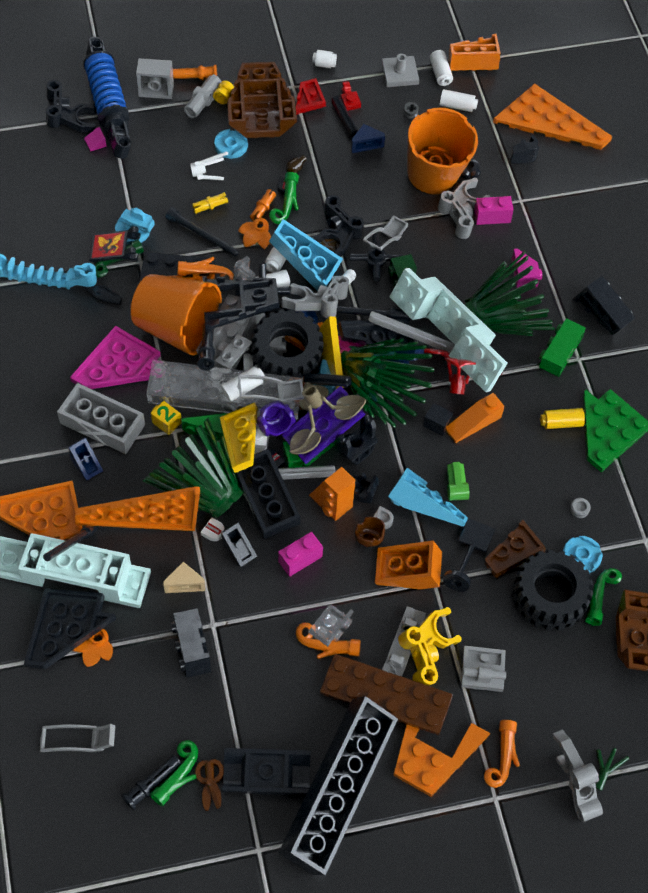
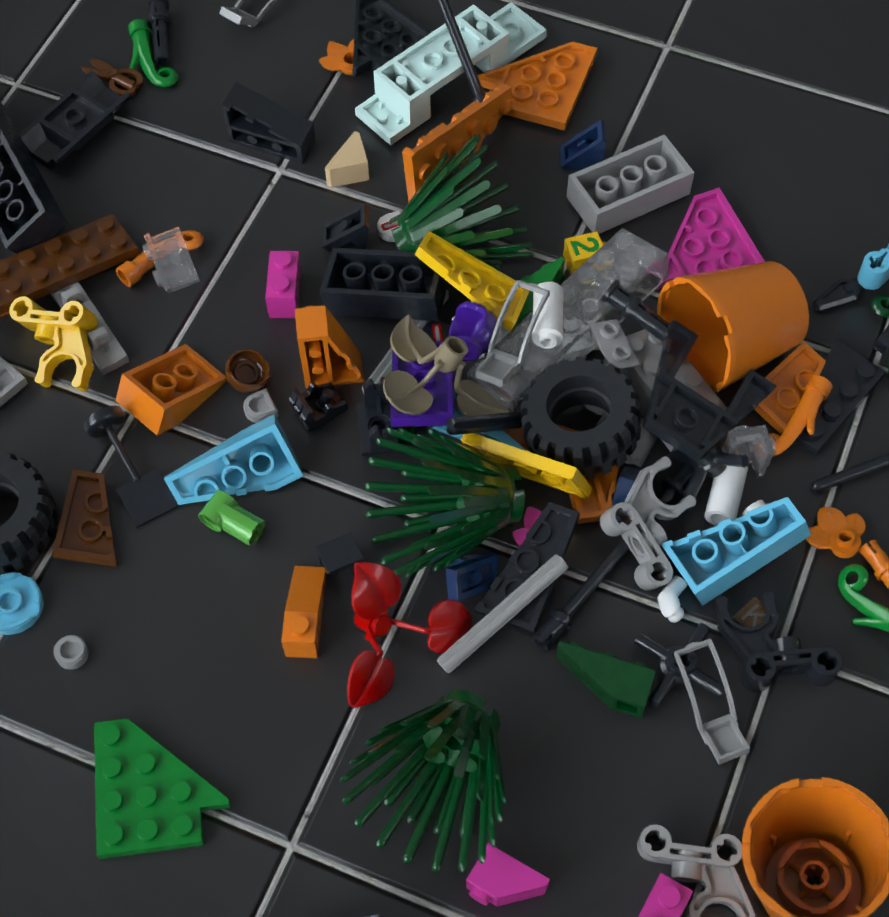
camera: 130 degrees right, 0 degrees up
(470, 335) = (408, 673): light aqua bracket -> none
(561, 347) = (324, 823): green brick -> none
(562, 418) = (209, 727): yellow brick -> none

